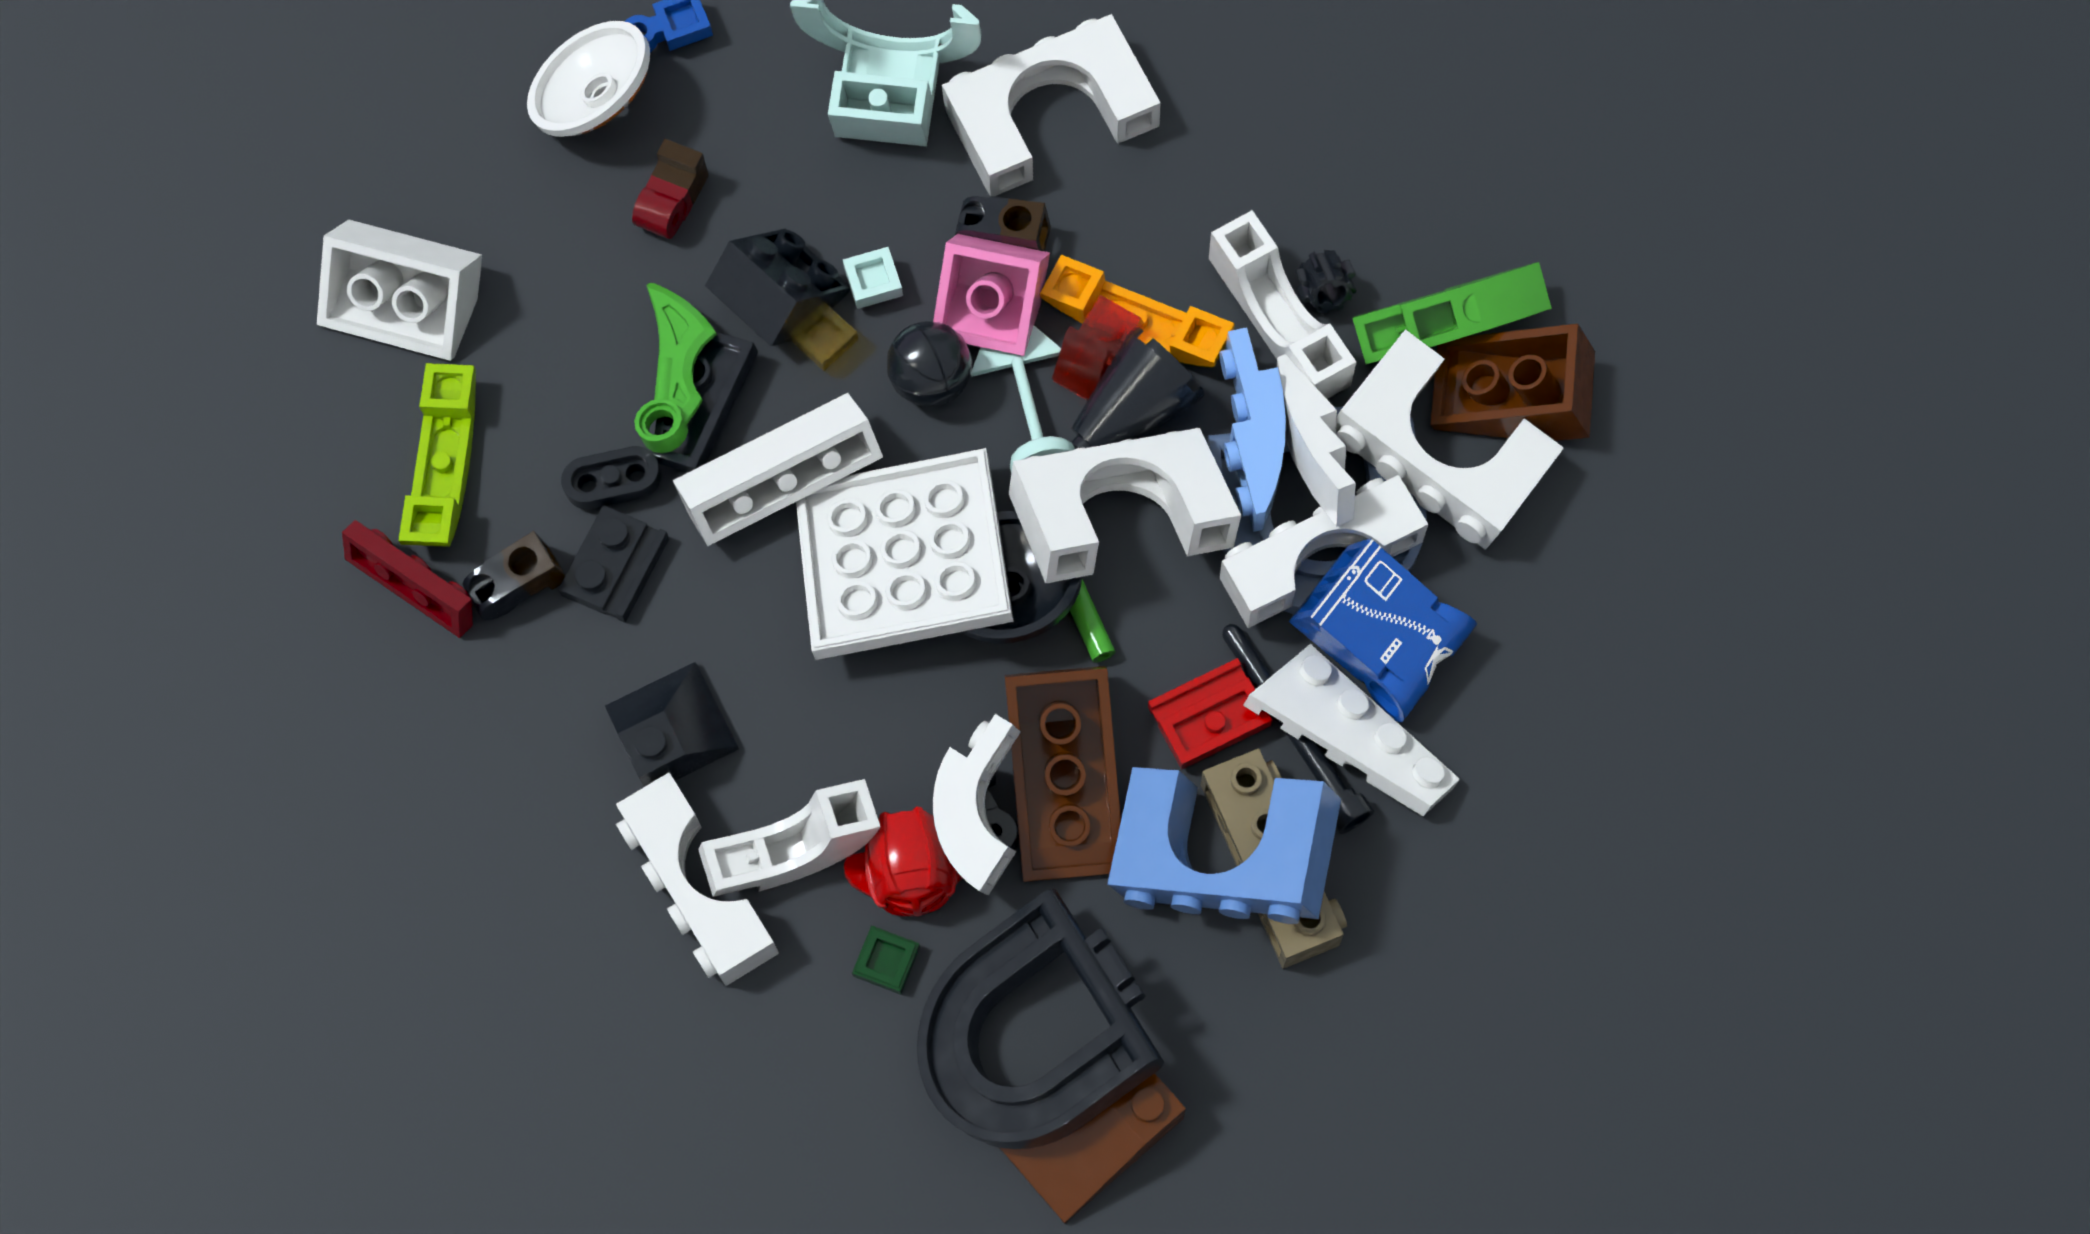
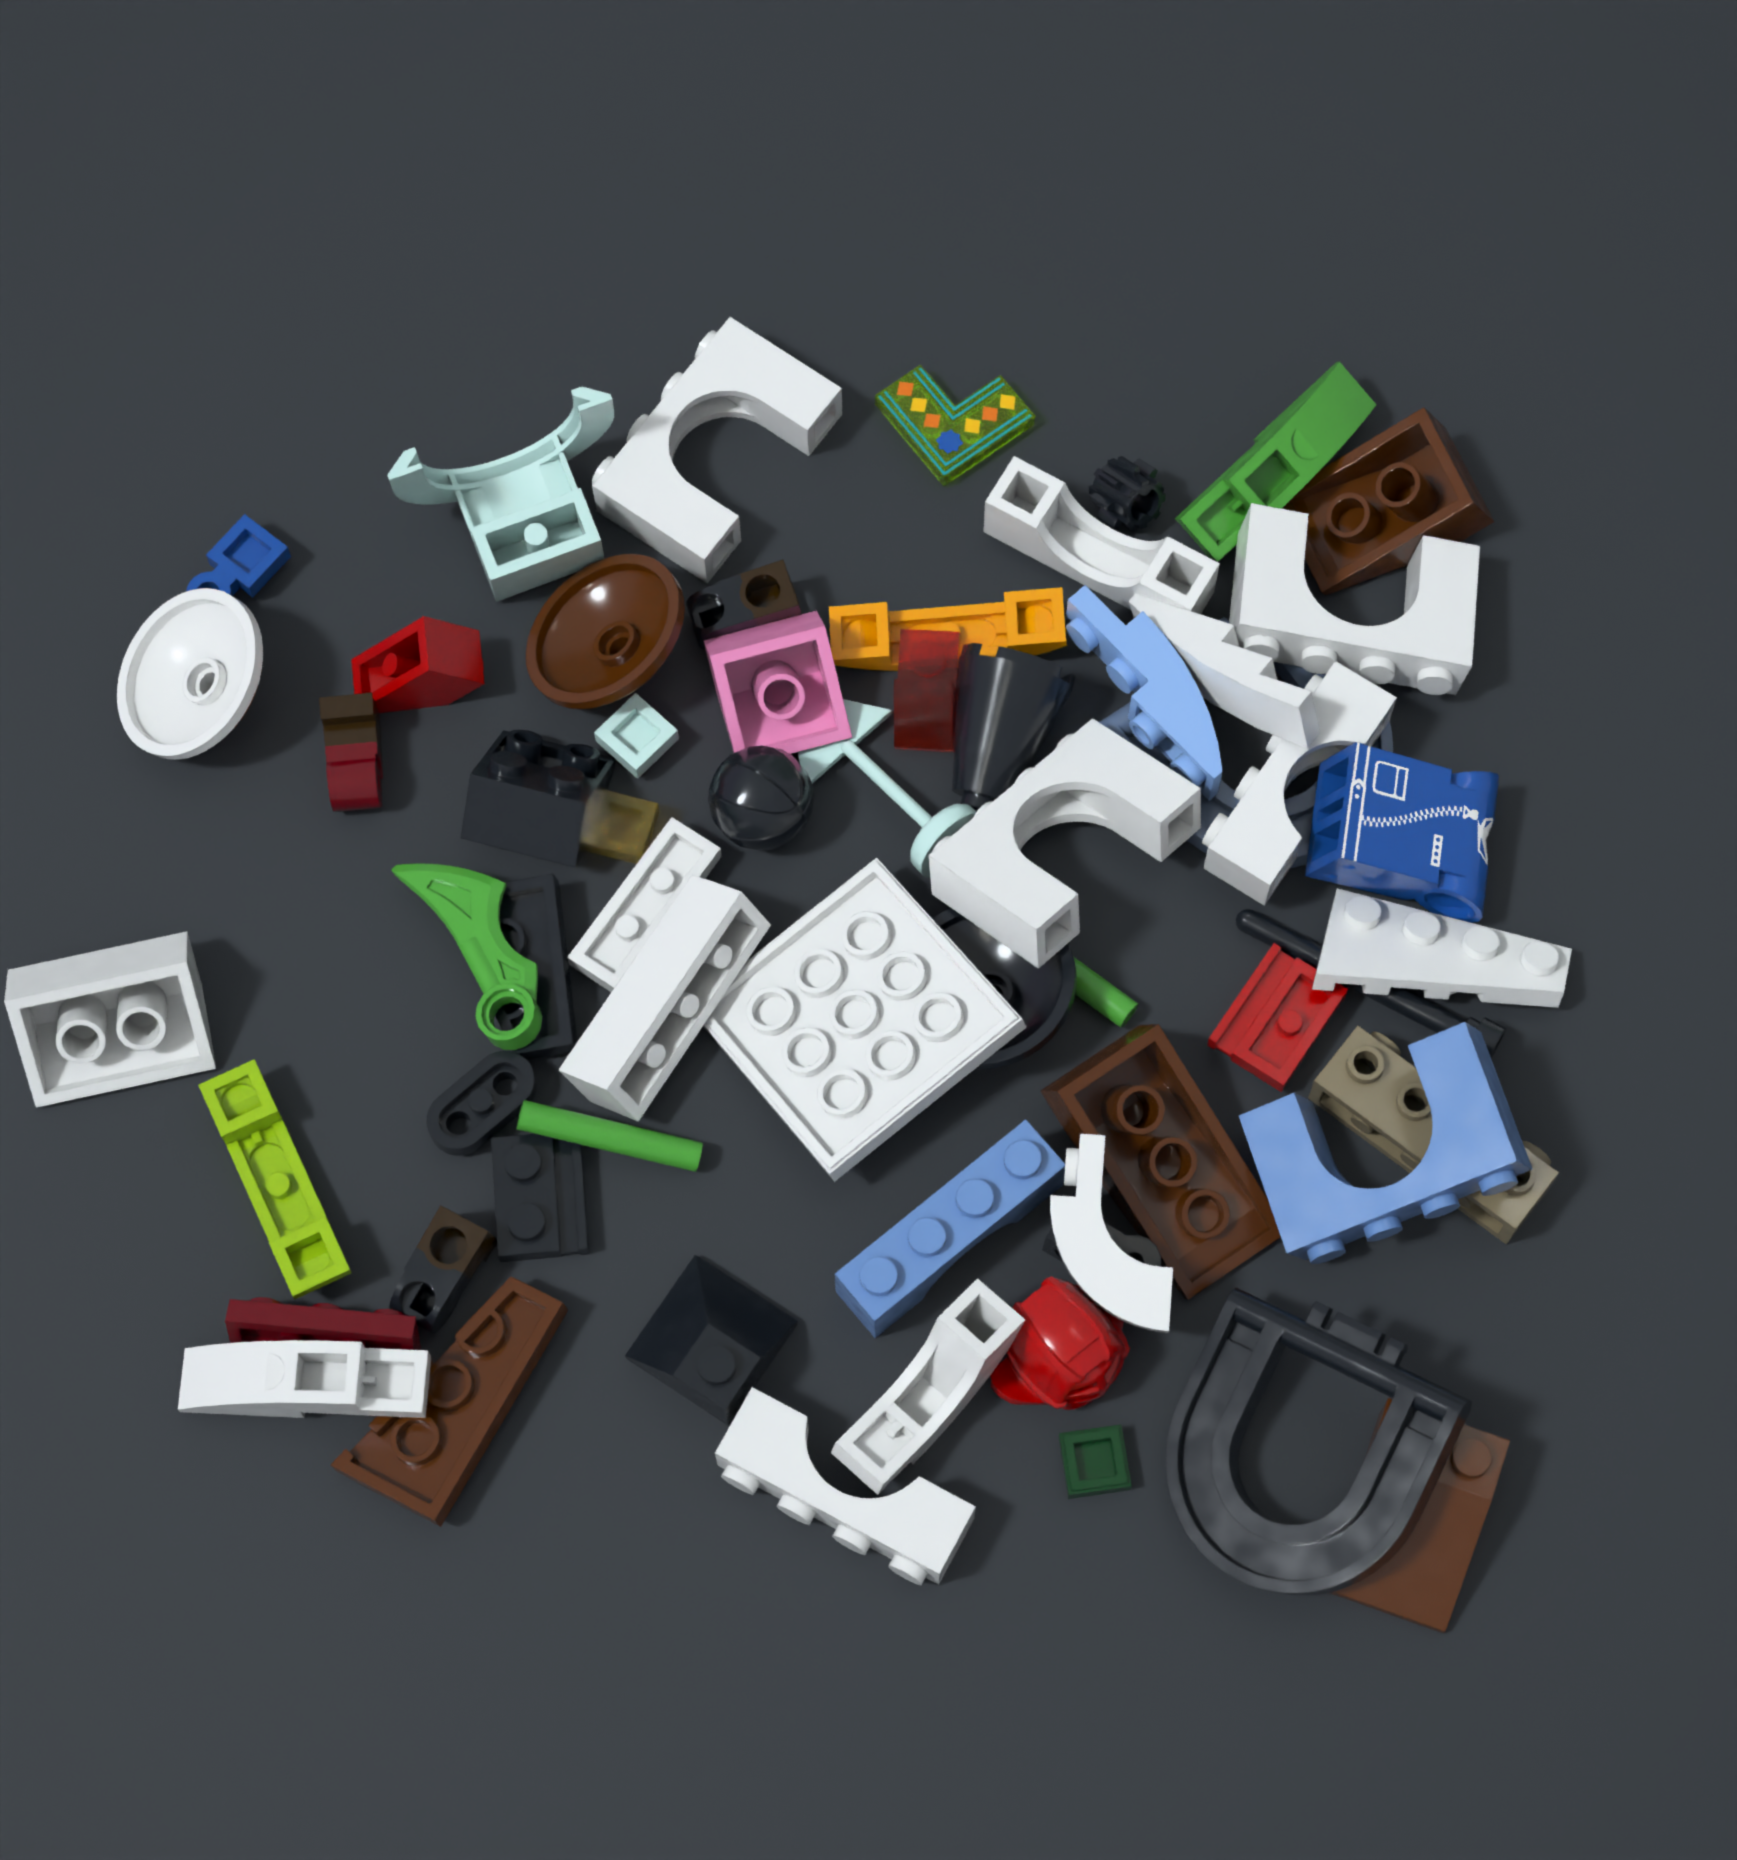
camera: 30 degrees left, 0 degrees up
(375, 603) = (303, 1379): none -> white slope
(446, 688) = (469, 1395): none -> reddish brown wing
(683, 546) = (609, 1135): none -> bright green piece
(752, 154) = (421, 666): none -> red slope
(806, 392) = (642, 902): none -> white plate
(832, 743) = (922, 1246): none -> medium blue arch
(890, 192) = (605, 631): none -> reddish brown dish
(1231, 181) = (951, 435): none -> clear neon green tile

